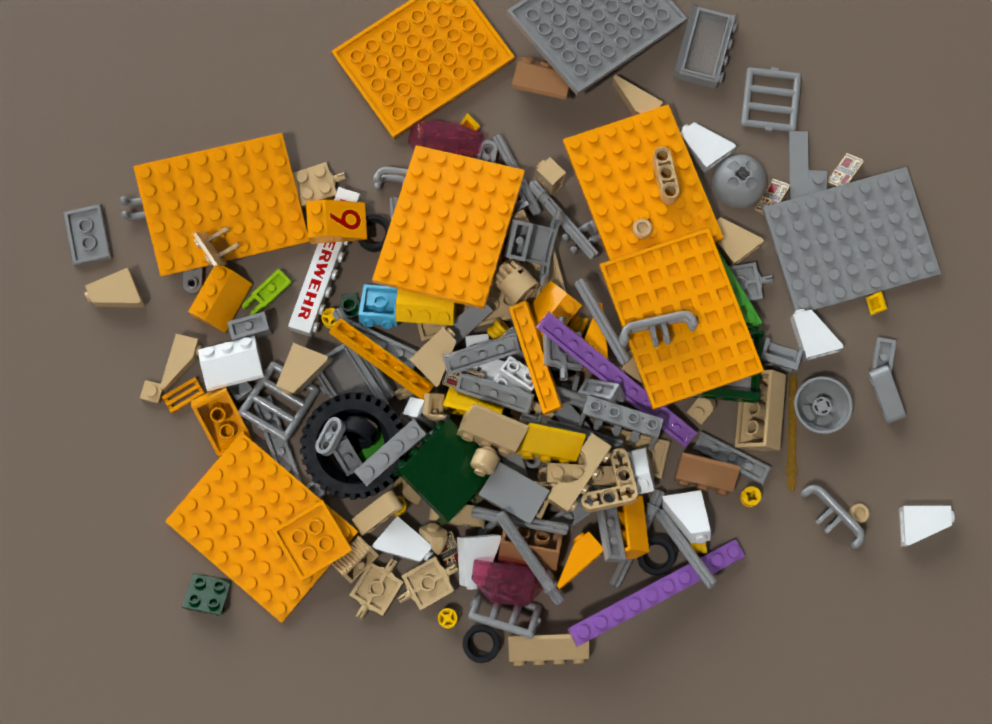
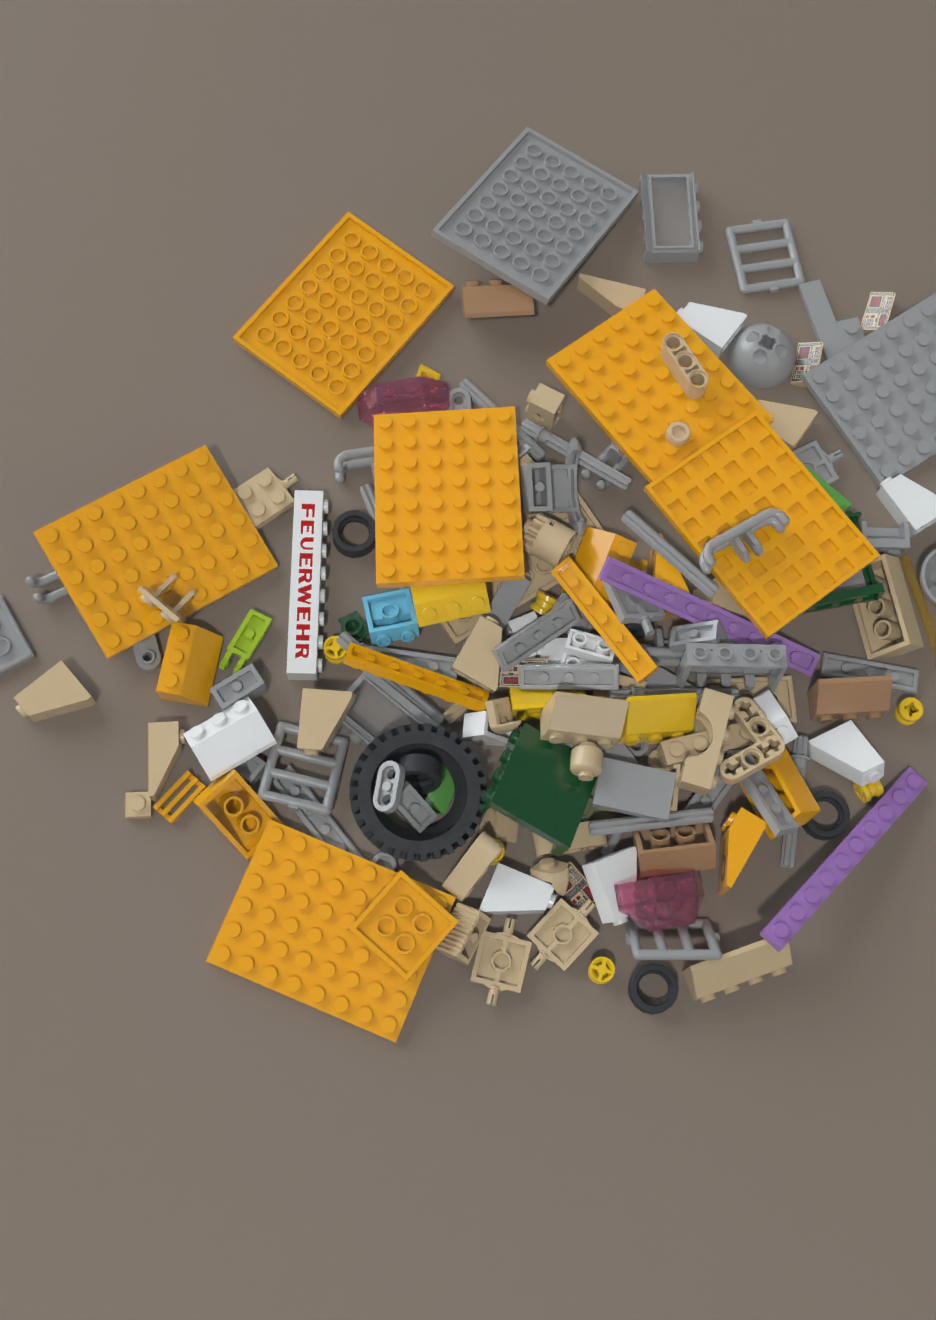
camera: 25 degrees left, 5 degrees down
(206, 594) = (289, 1037): dark green hinge -> none
(336, 221) = (305, 530): light orange slope -> none
(390, 452) = (468, 784): light grey plate -> none
(530, 558) = (709, 883): light grey axle -> none
(686, 549) = (860, 795): light grey axle -> none
(702, 409) = (815, 626): tan plate -> none

